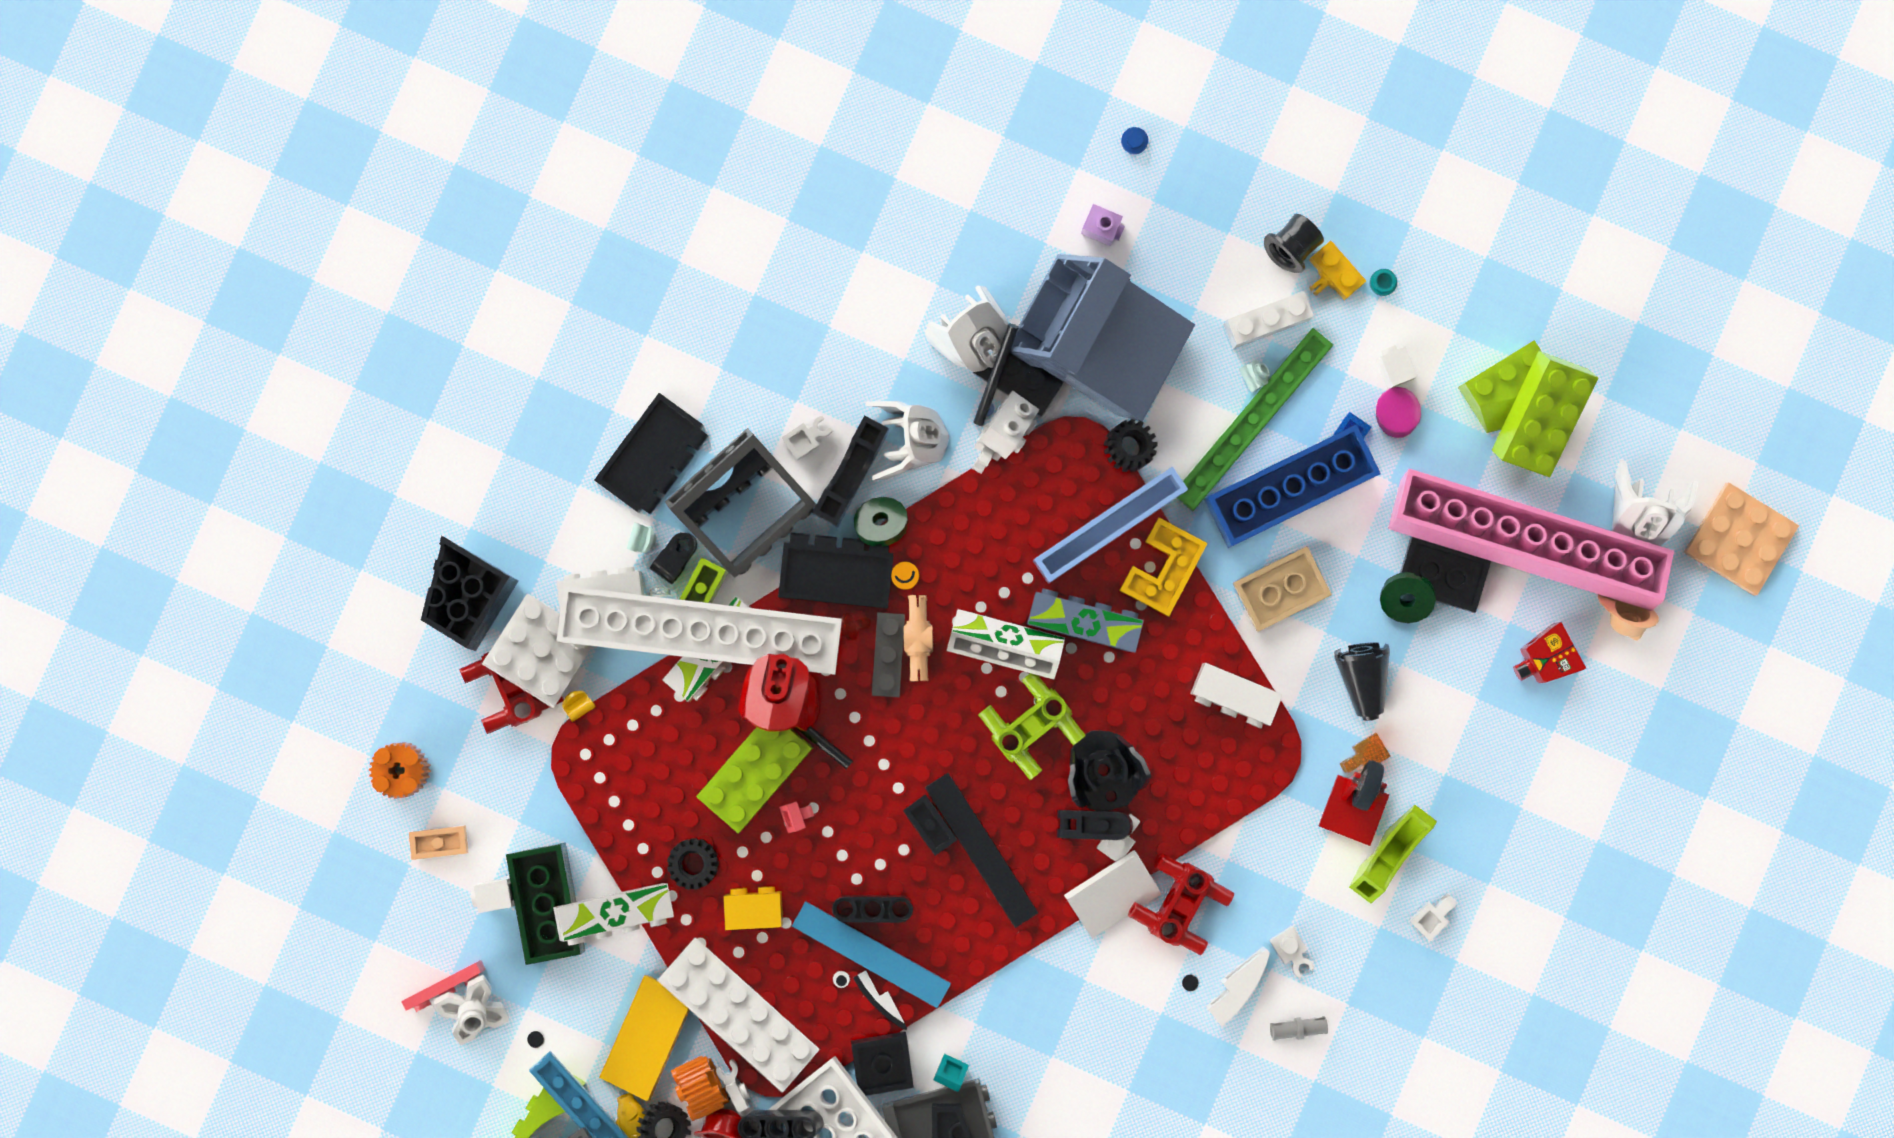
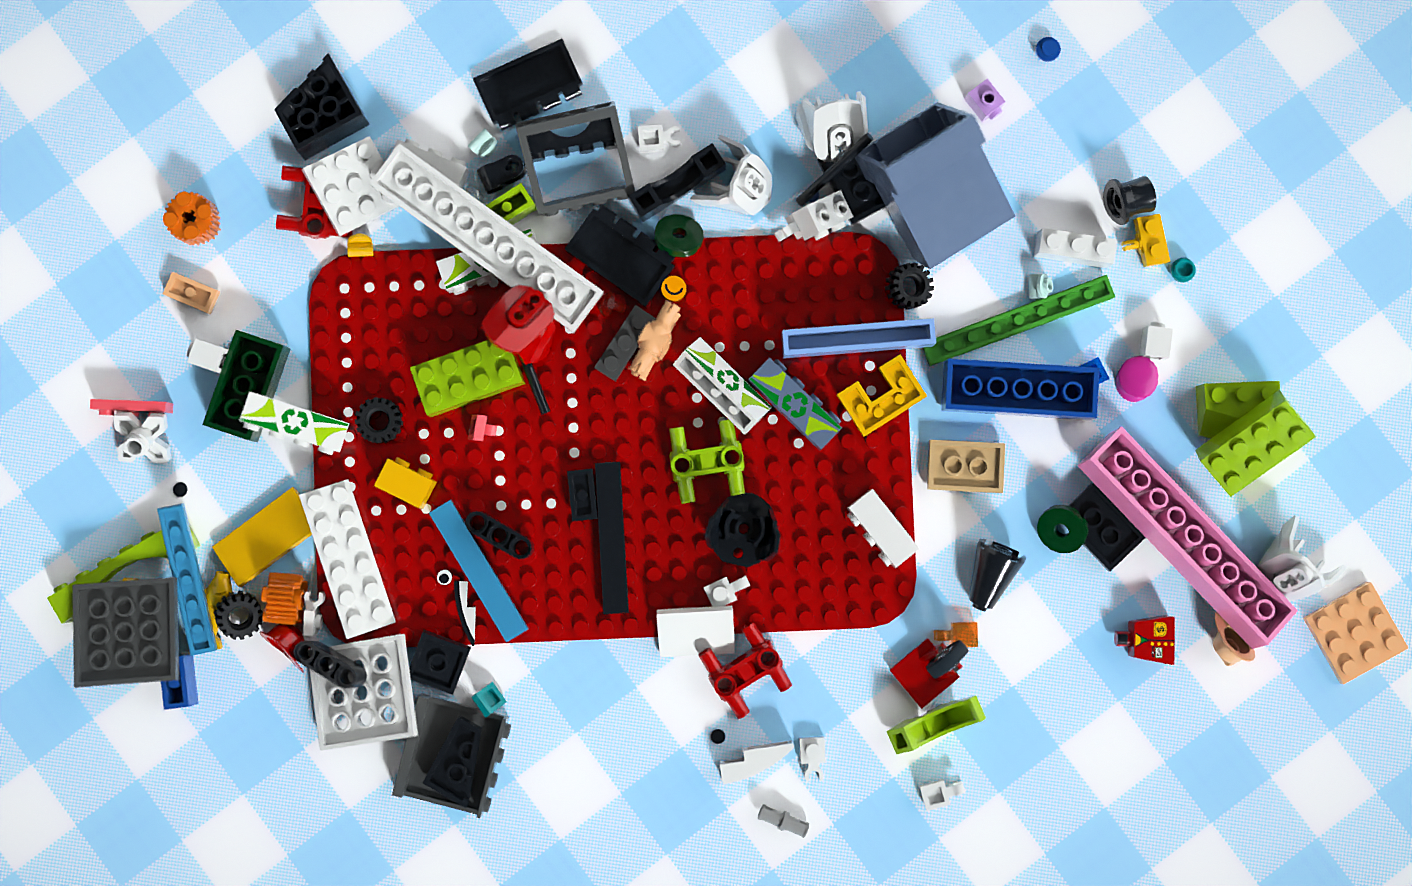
camera: 30 degrees right, 0 degrees up
(1094, 824) = (712, 568): black plate -> none

